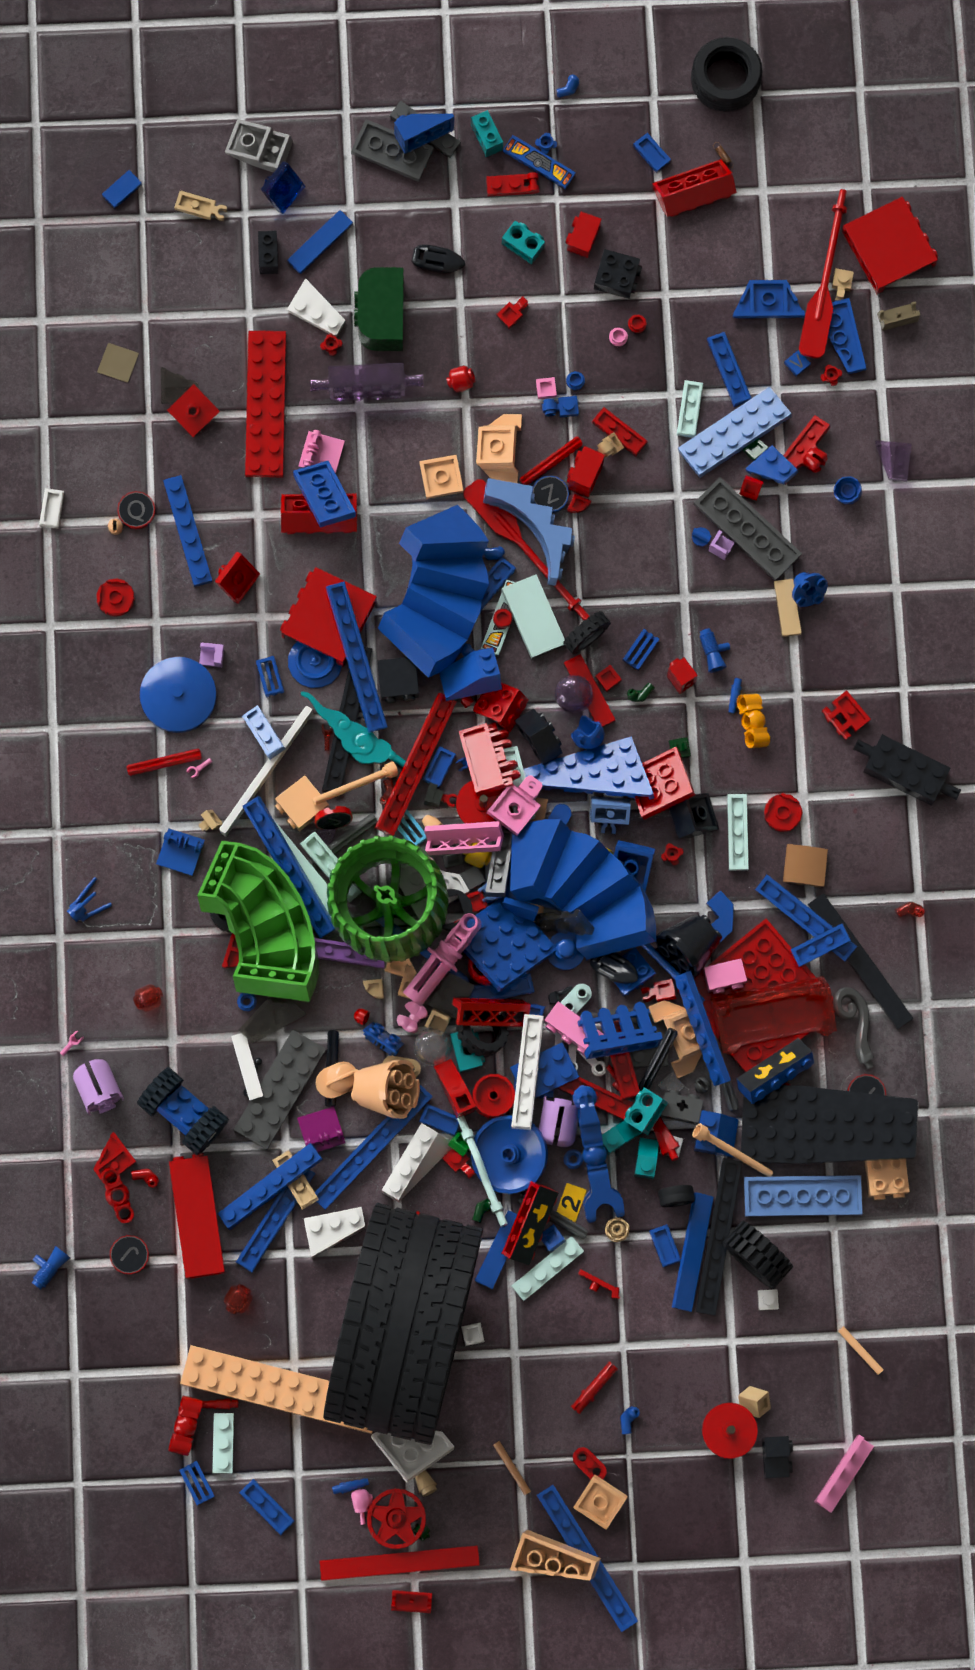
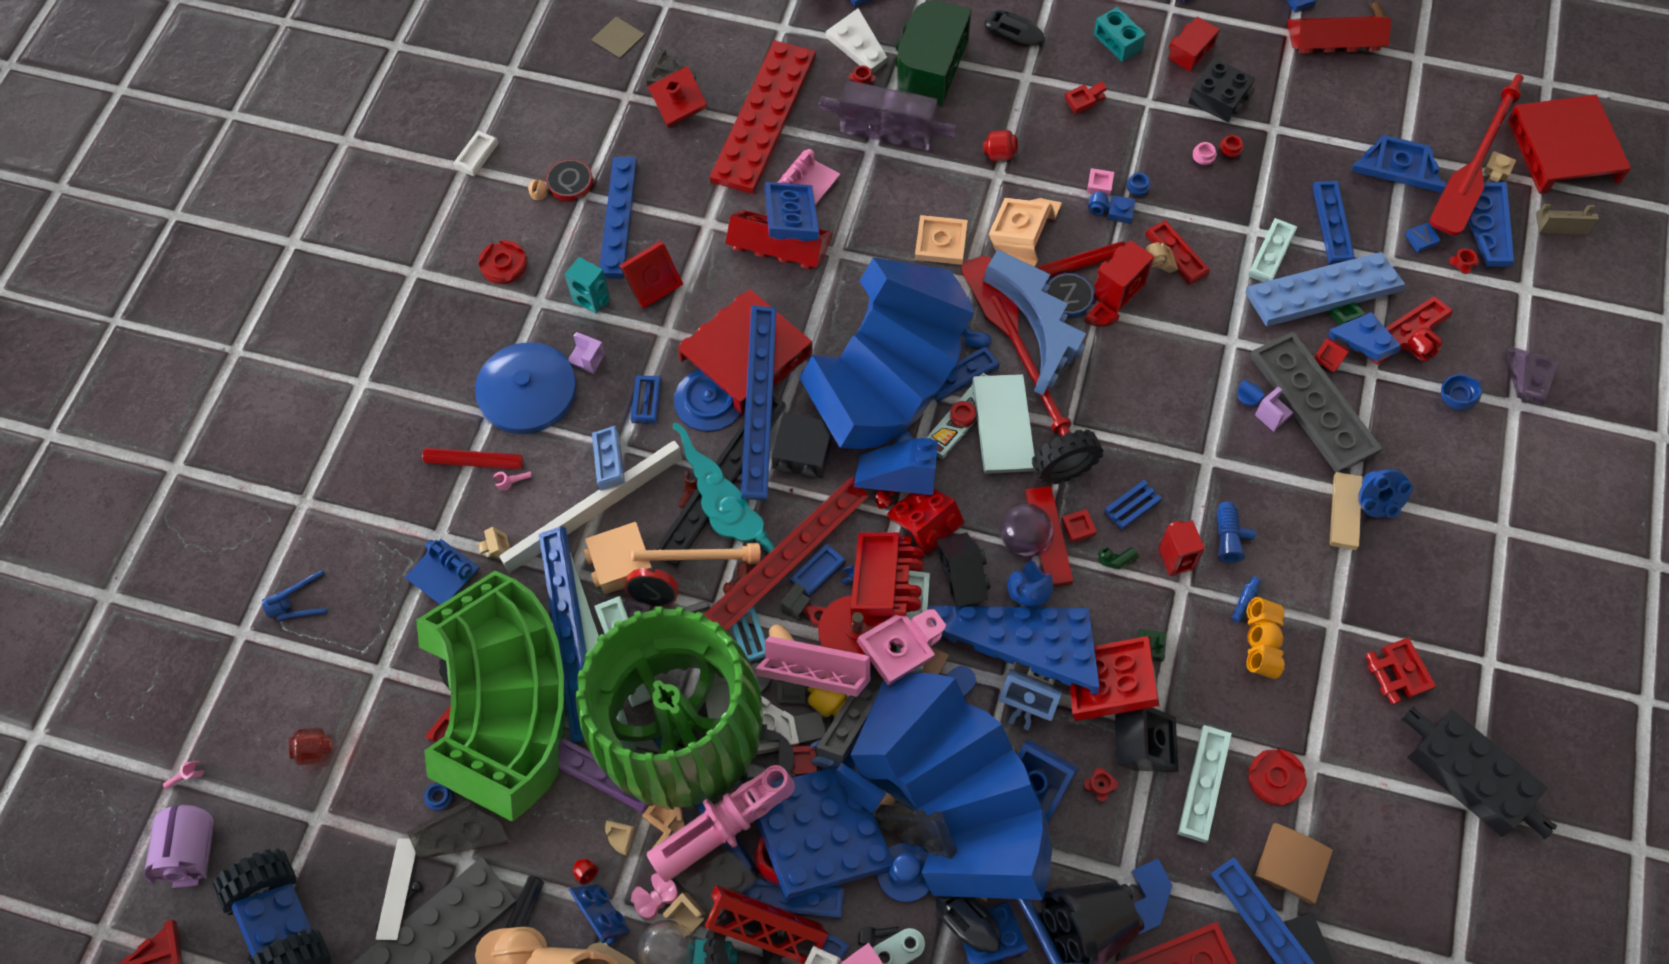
camera: 25 degrees right, 15 degrees down
(194, 602) = (587, 285): none -> teal brick

